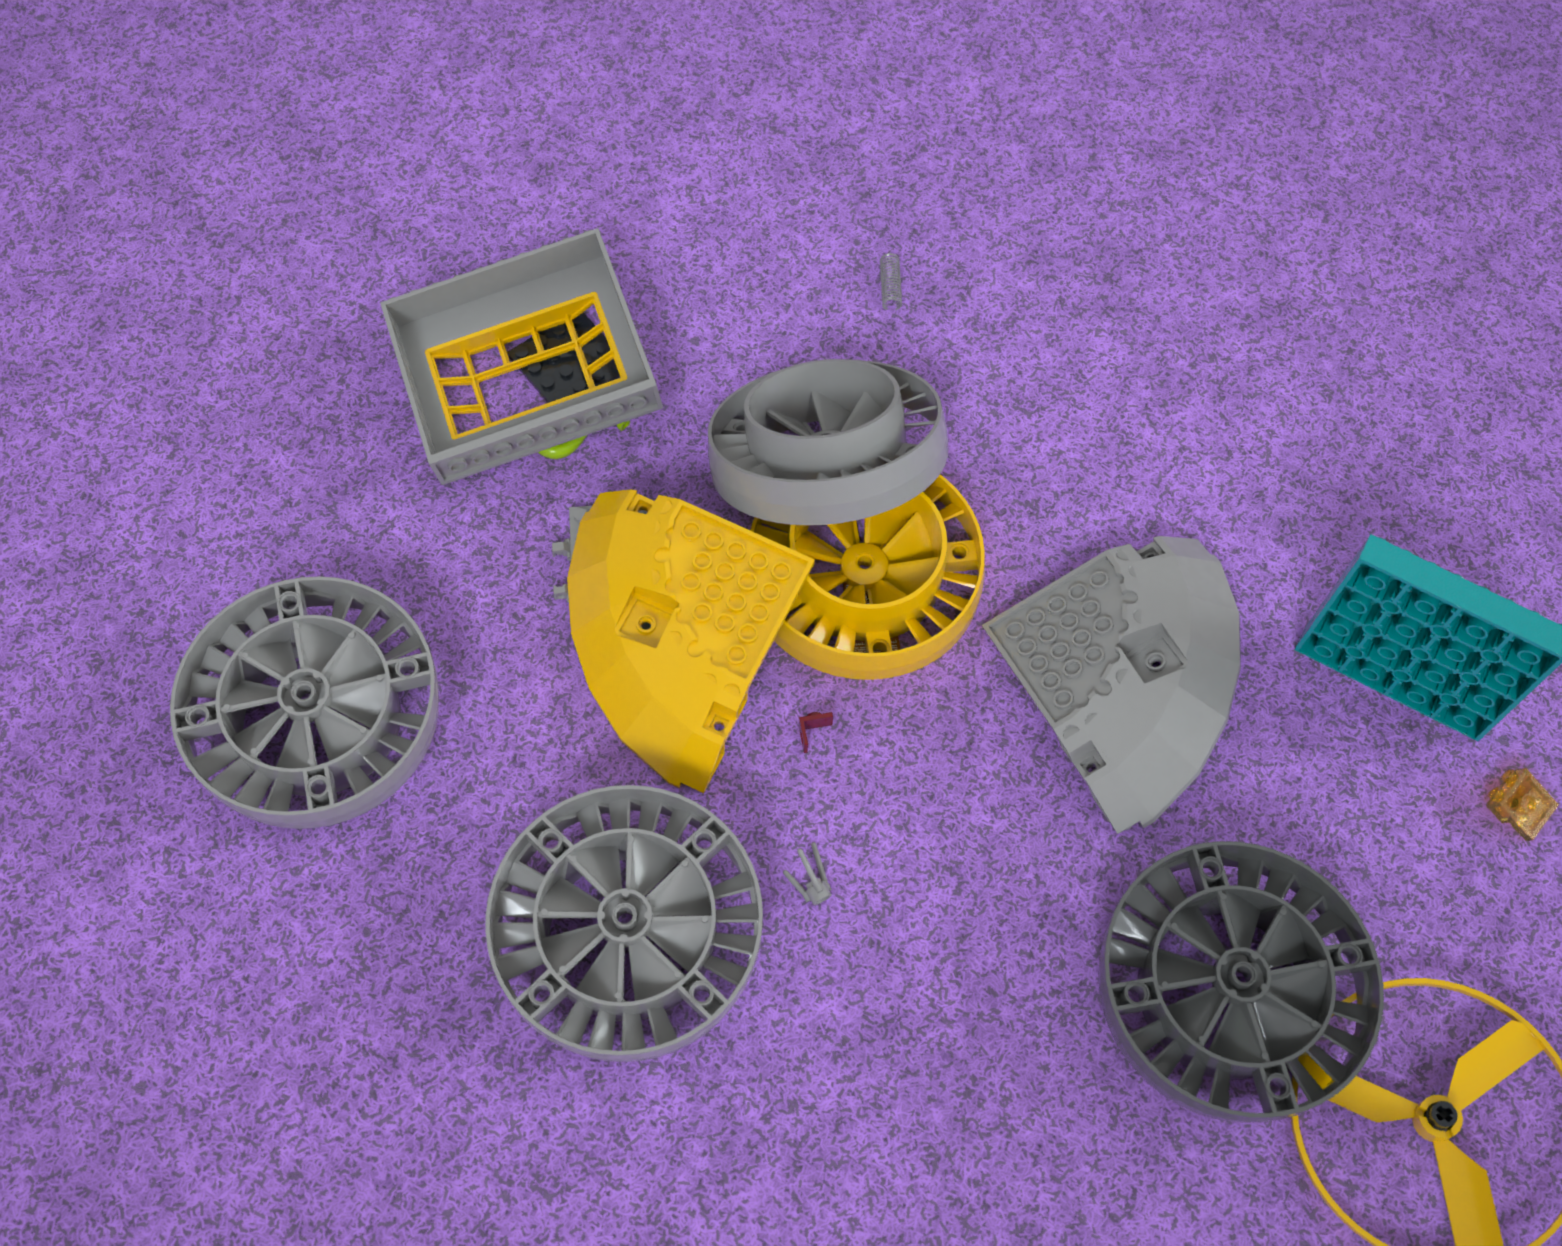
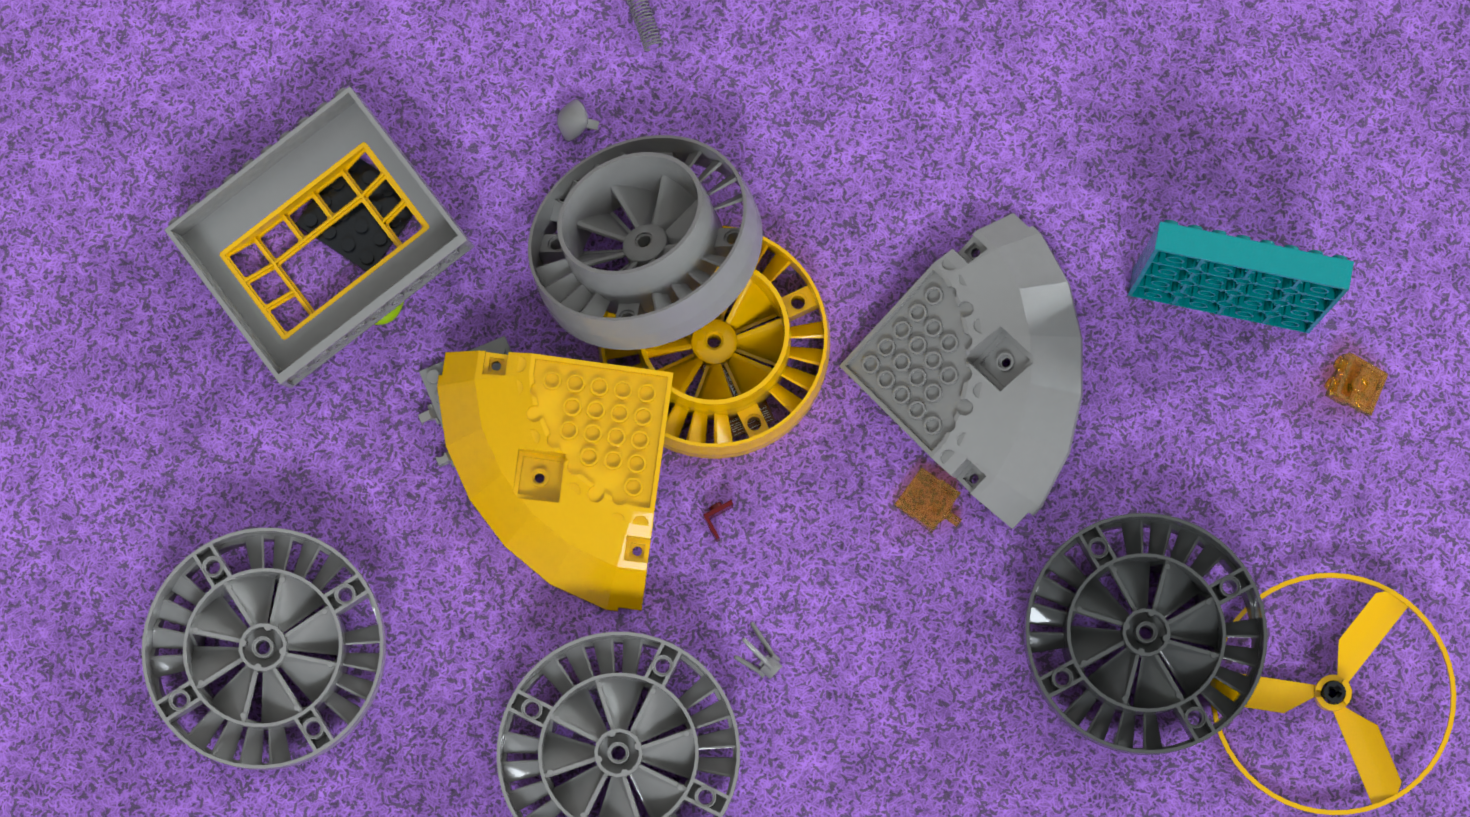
camera: 15 degrees left, 15 degrees up
(797, 340) = (573, 120): none -> light grey piece
(1036, 779) = (928, 501): none -> clear yellow plate

